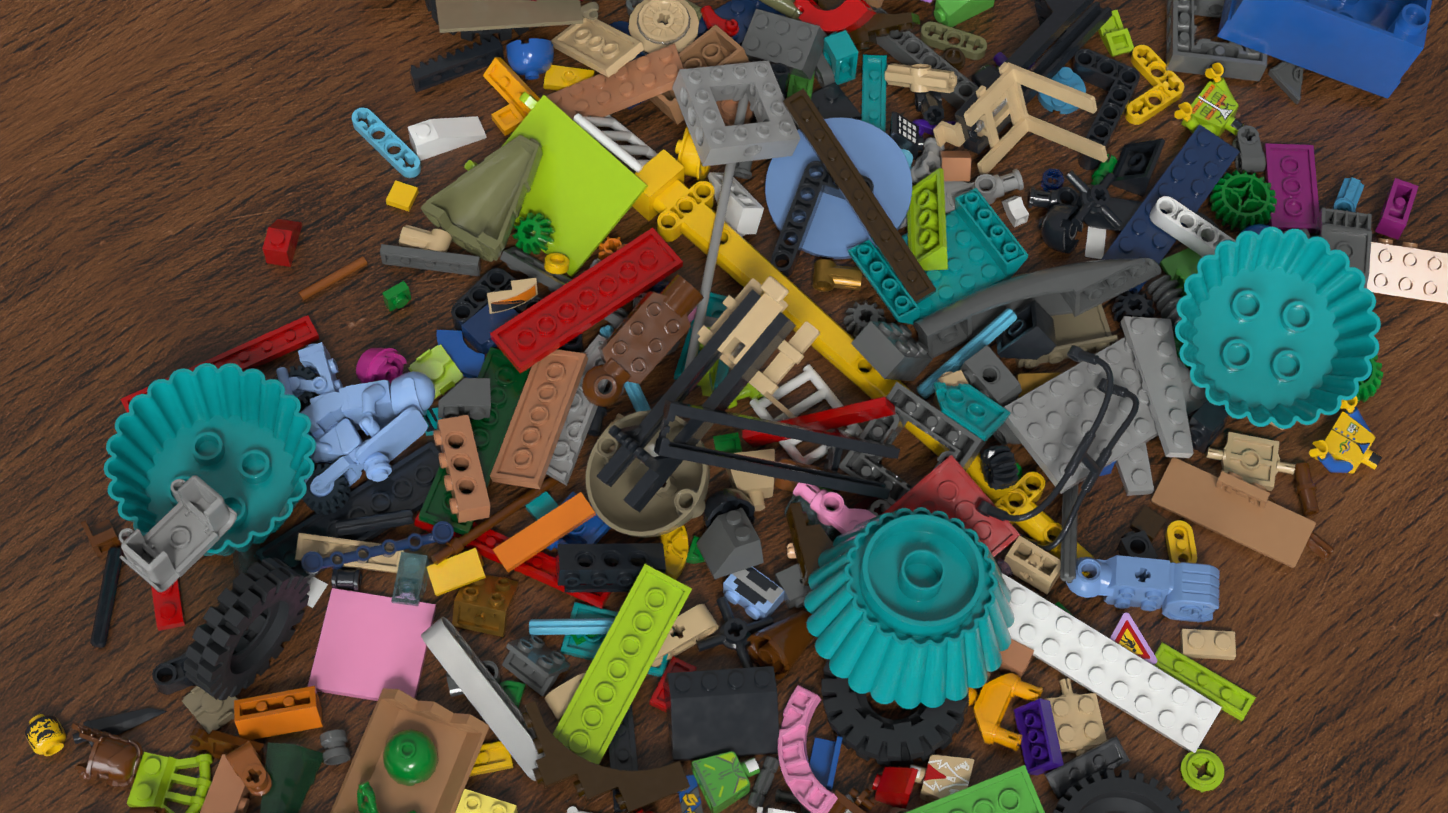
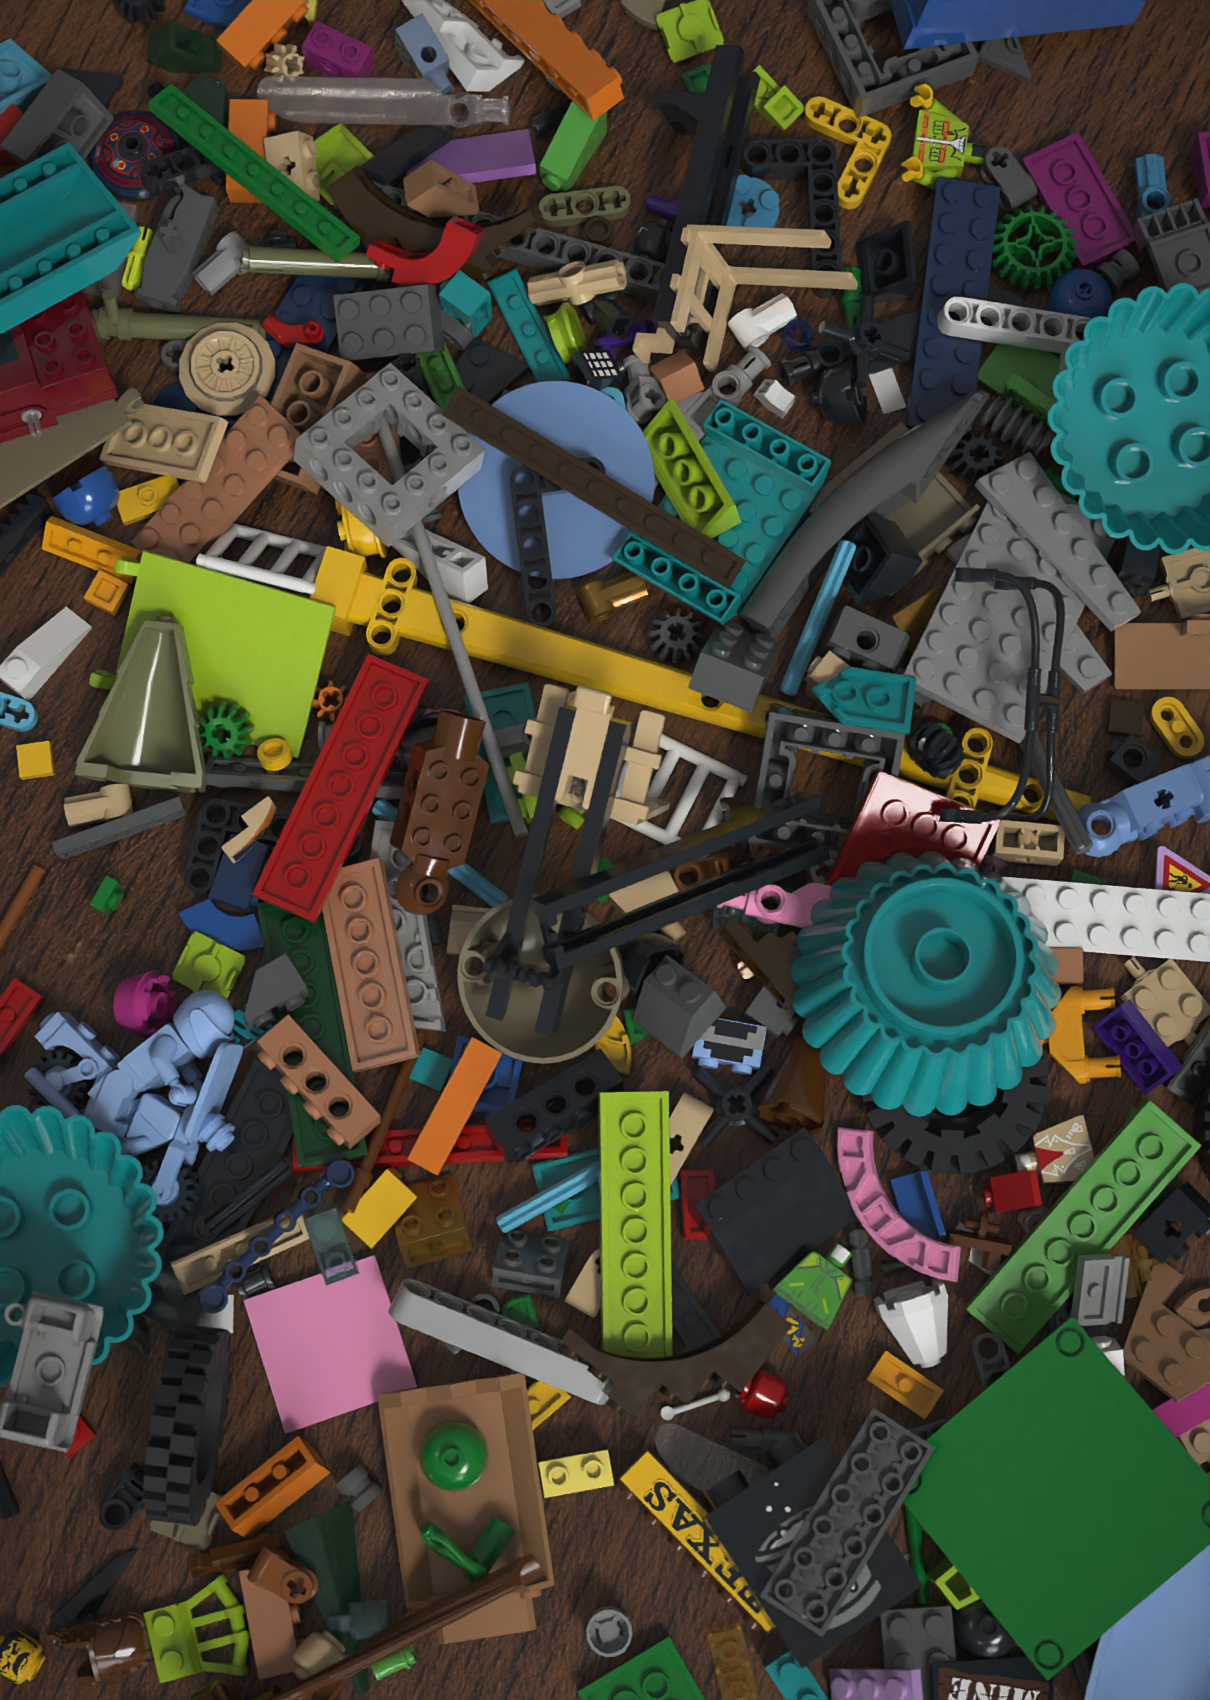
camera: 25 degrees left, 15 degrees up
(828, 419) = (699, 802): red tile -> none
(898, 101) = (566, 332): none -> lime hat
(1032, 160) = (756, 325): none -> white piece

